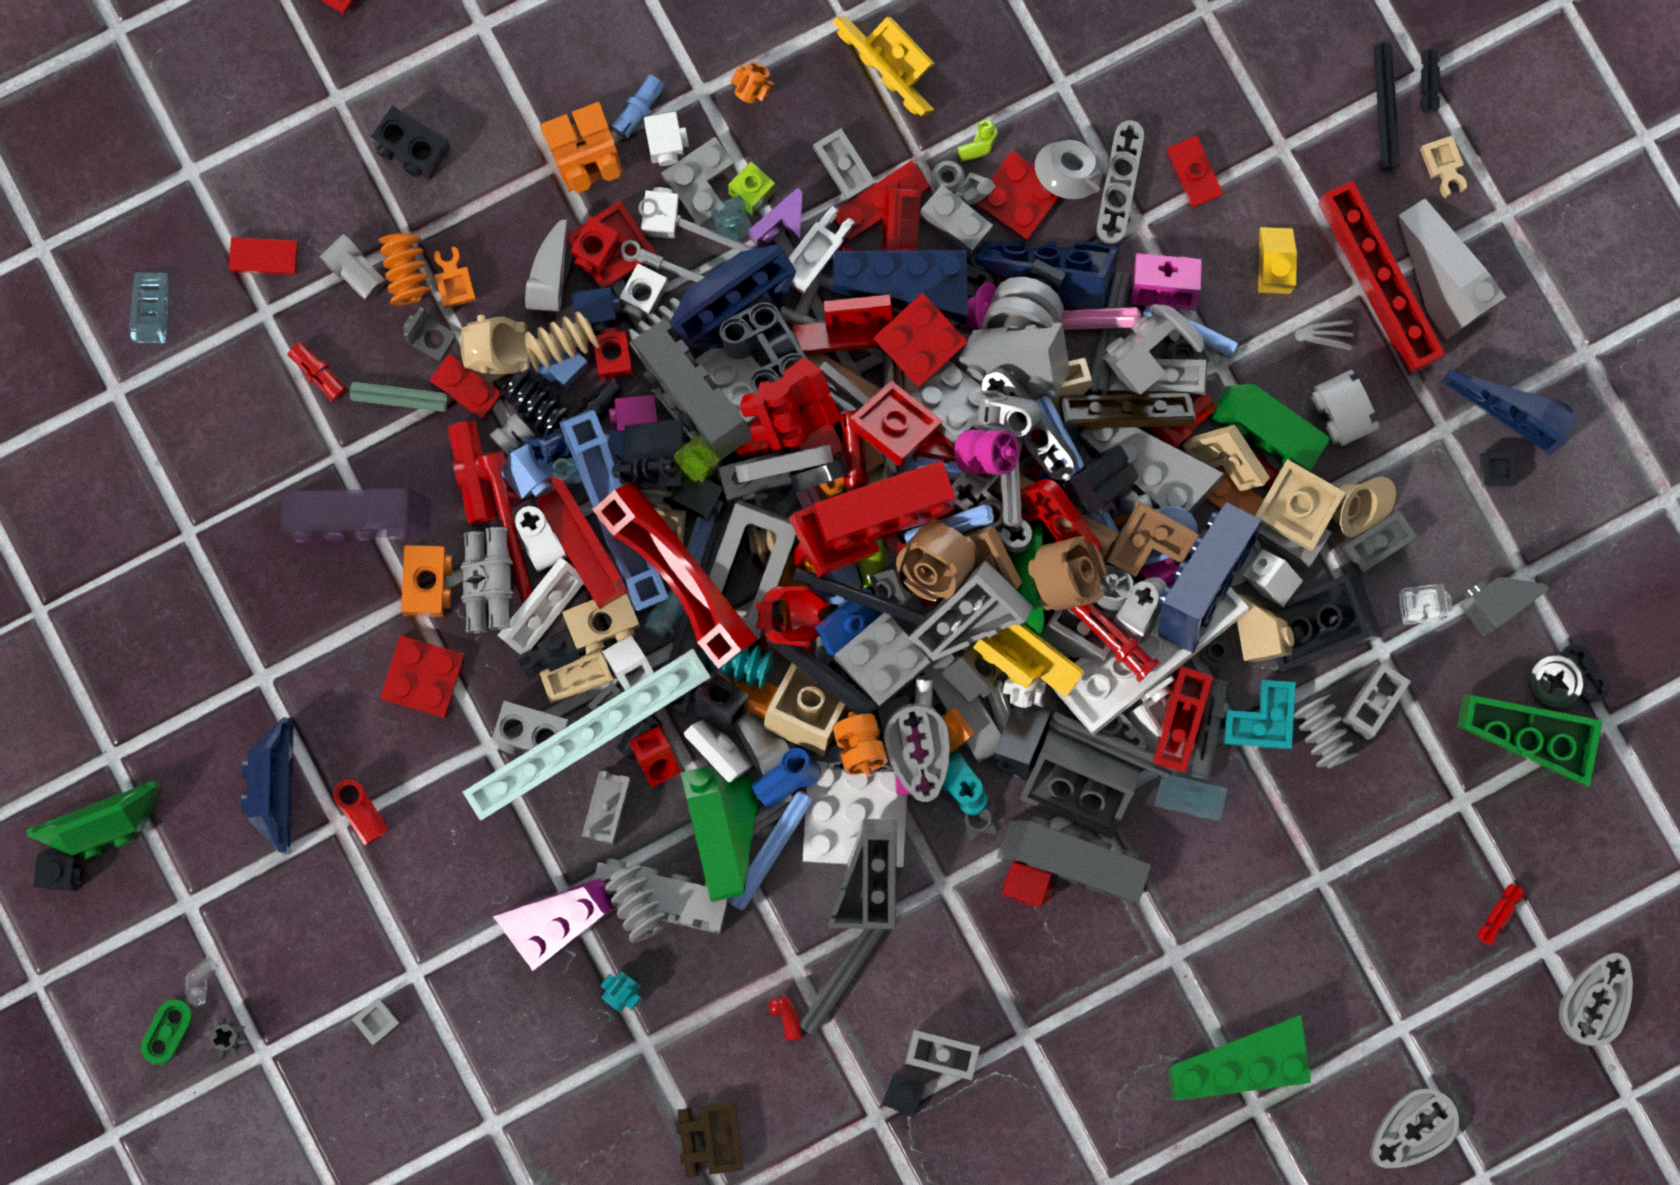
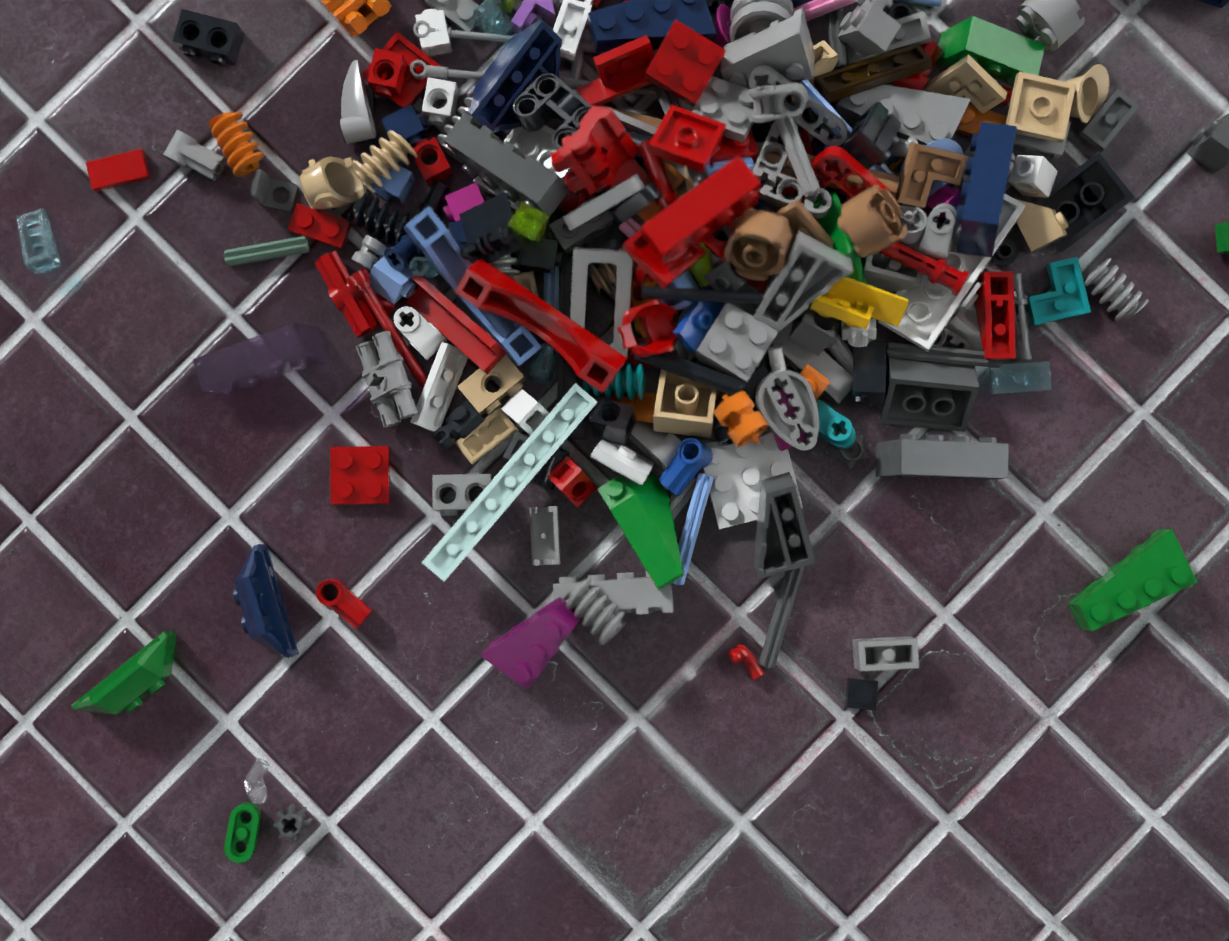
camera: 10 degrees left, 5 degrees up
(58, 872) = (112, 729): black bracket -> none
(317, 371) = (192, 251): red pin -> none
(375, 1021) = (411, 770): light grey plate -> none
(422, 561) = (325, 383): orange brick -> none
(454, 283) = (281, 142): orange plate -> none
(620, 992) = (605, 683): teal gear -> none
(721, 1139) = (724, 775): dark brown plate -> none
(963, 521) = (770, 204): light blue axle -> none
(986, 452) = (773, 138): dark pink wheel -> none
(1027, 885) = (909, 491): red brick -> none
(1375, 701) = (1149, 251): light grey brick -> none
(1424, 604) = (1161, 159): clear brick -> none
(1498, 469) = (1187, 30): black plate -> none

